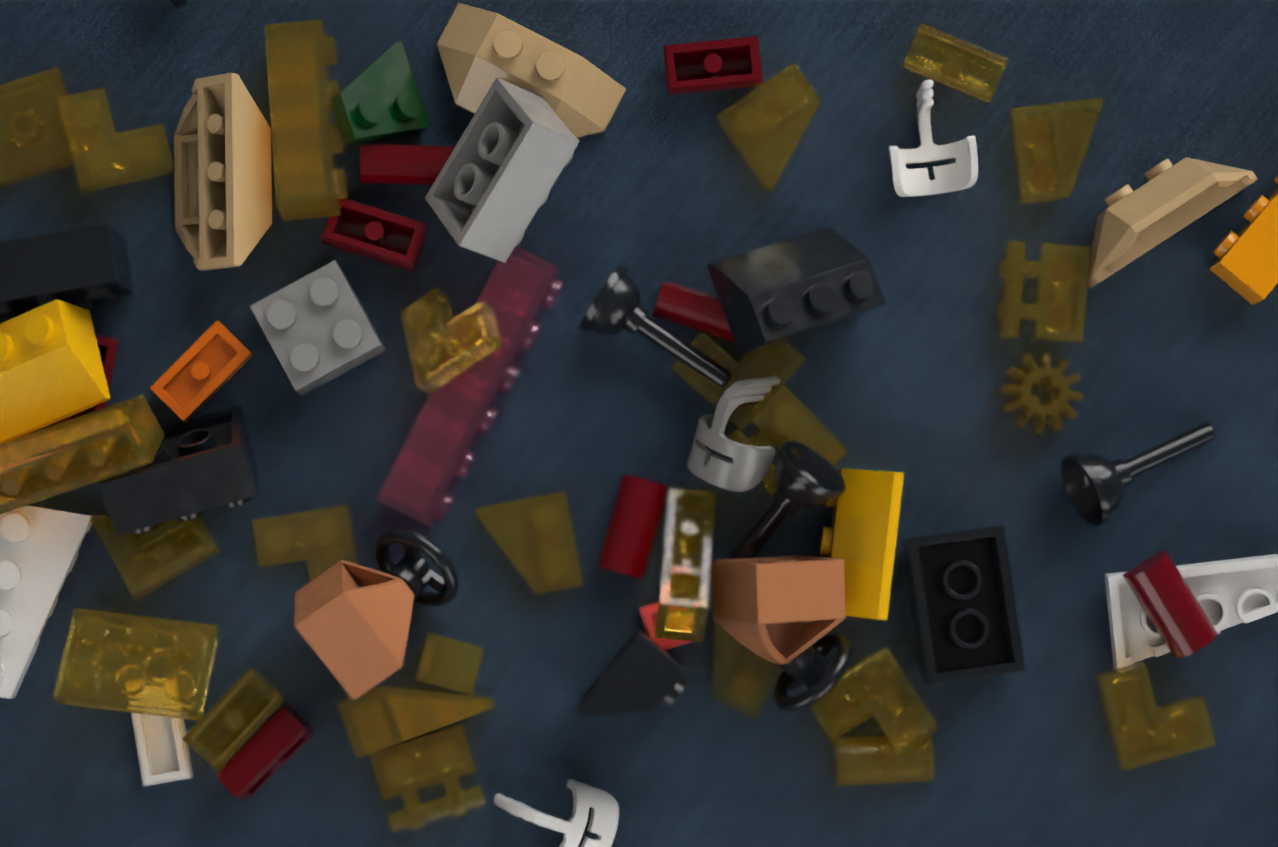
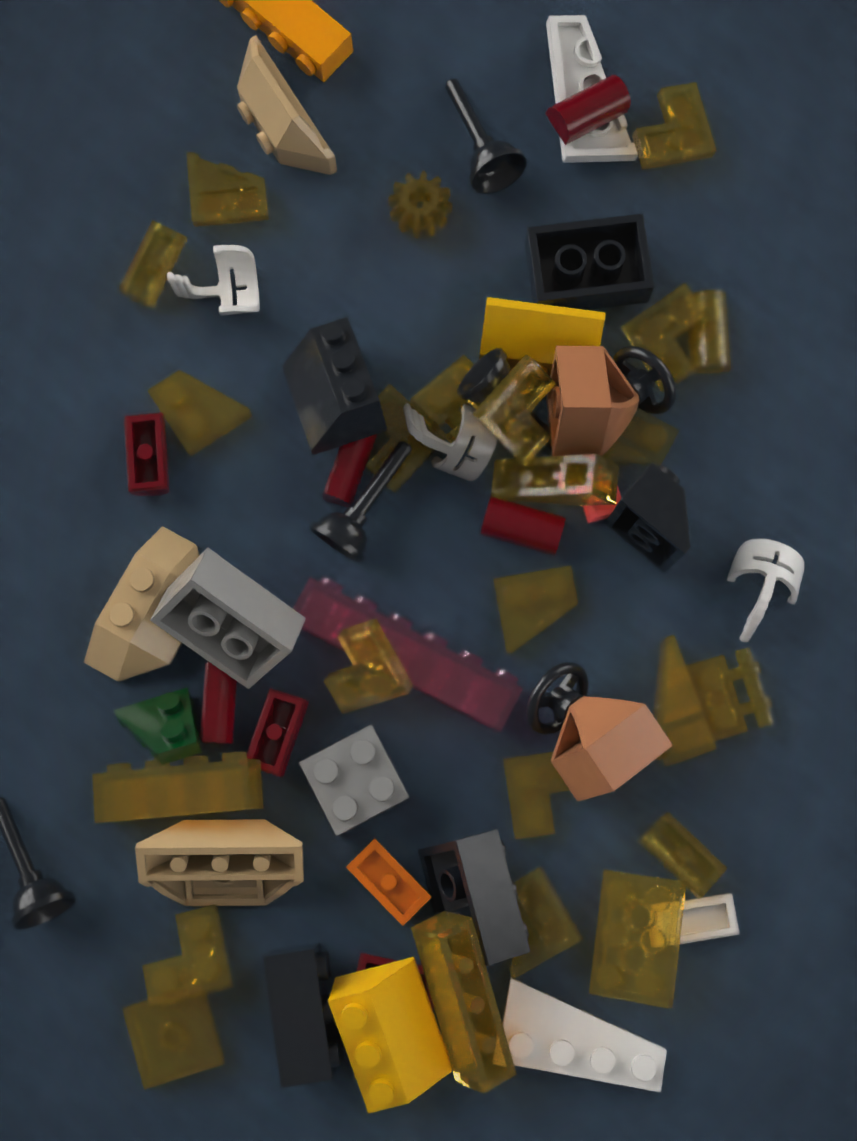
camera: 85 degrees left, 5 degrees down
(265, 753) = (710, 830): dark red brick -> none
(450, 663) = (636, 673): clear yellow panel -> none
(766, 503) = (508, 409): none -> clear yellow plate
(1059, 292) = (340, 190): clear yellow plate -> none

